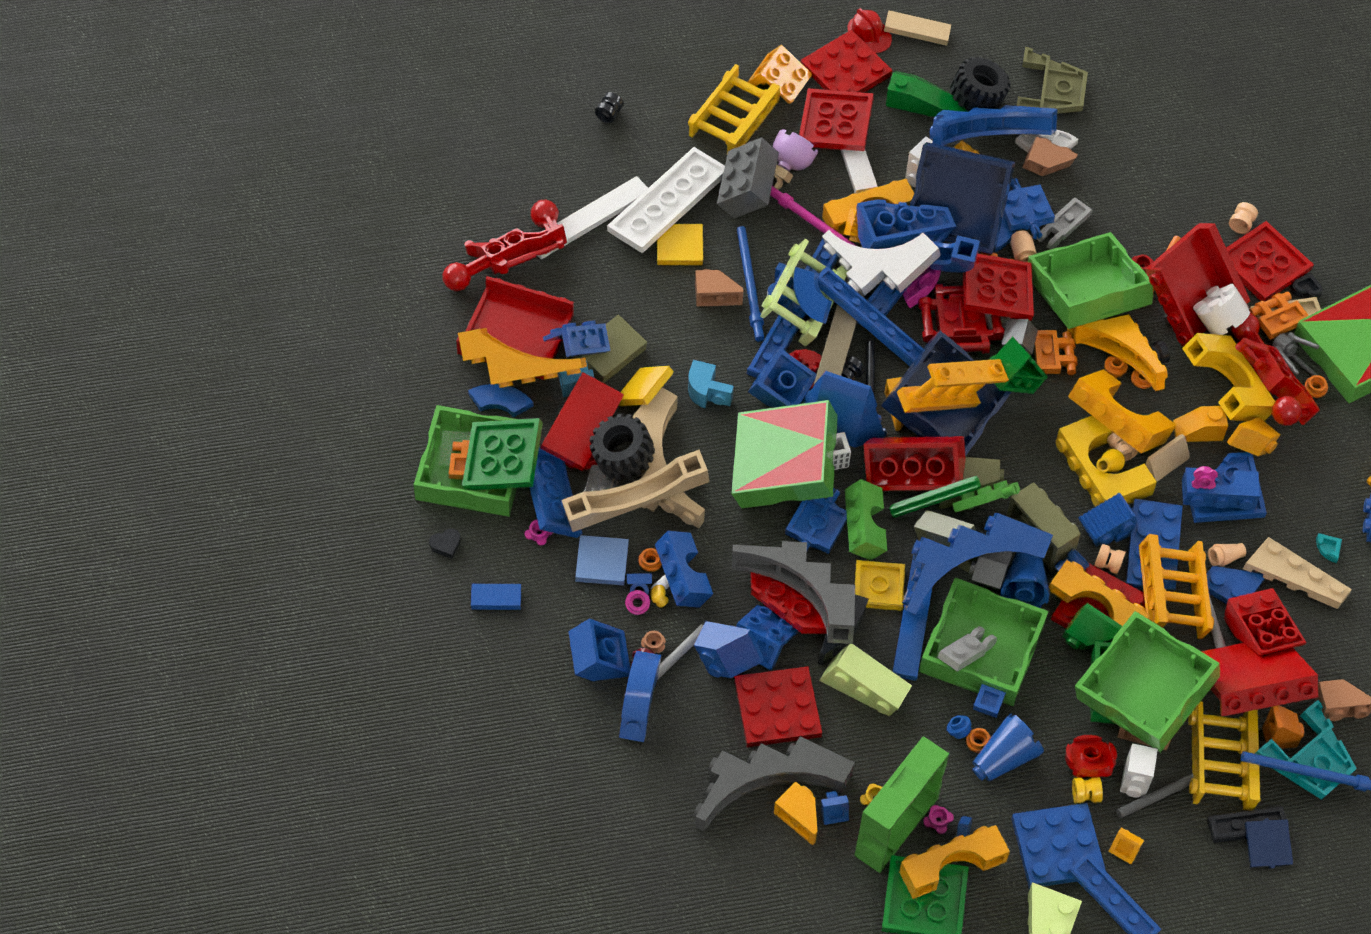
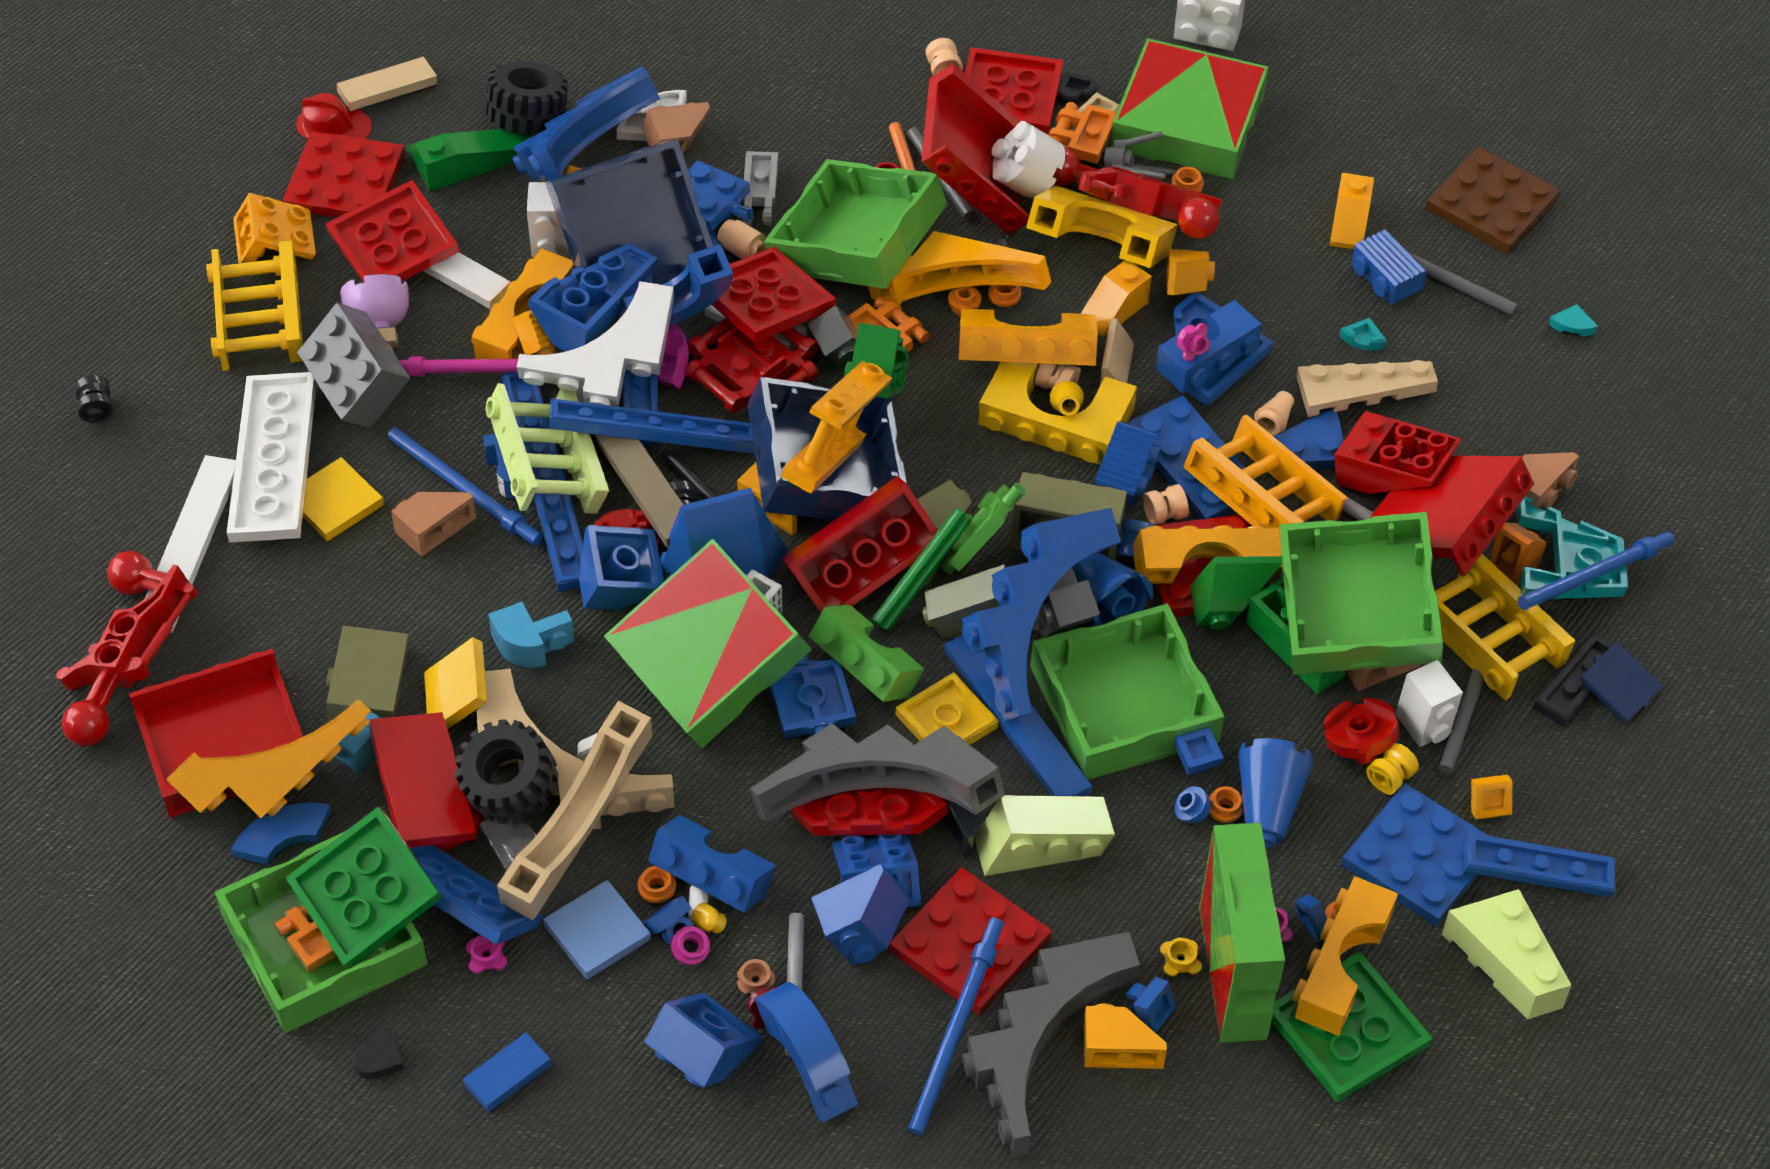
camera: 40 degrees left, 5 degrees down
(581, 340) = (332, 683): blue bracket -> none
(769, 718) = (982, 958): none -> blue bar
(810, 296) = (562, 444): blue tile -> none
(967, 649) = (1122, 712): light grey hinge -> none
(1062, 84) = (611, 43): olive wing -> none

